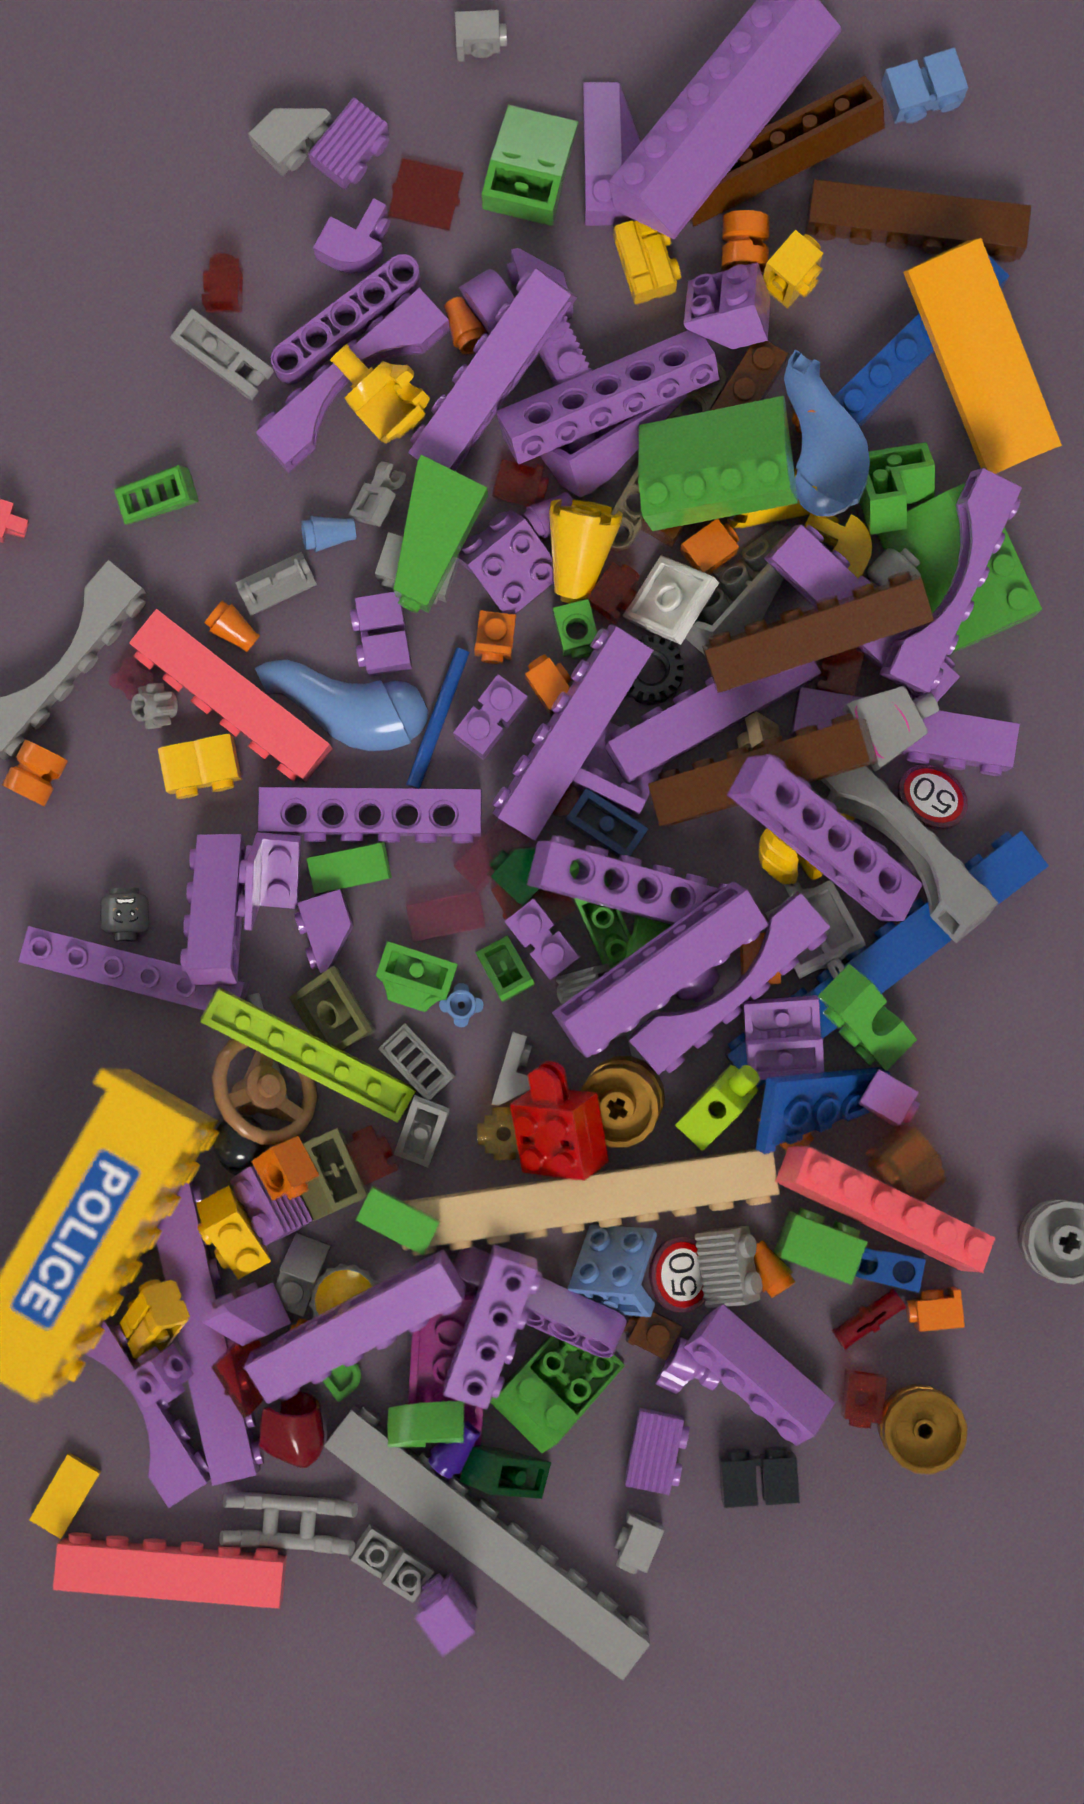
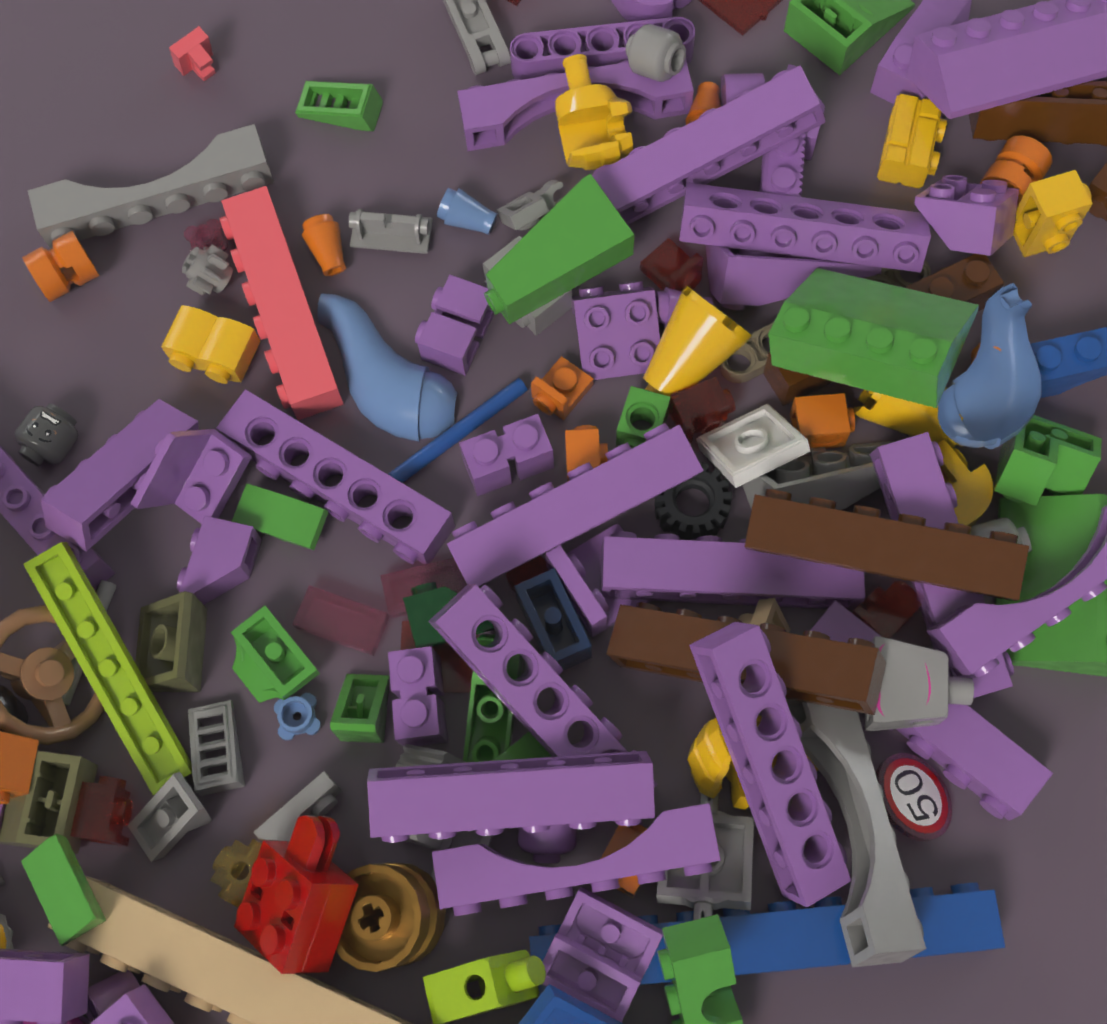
camera: 35 degrees right, 15 degrees down
(402, 308) = (655, 52): none -> light grey head

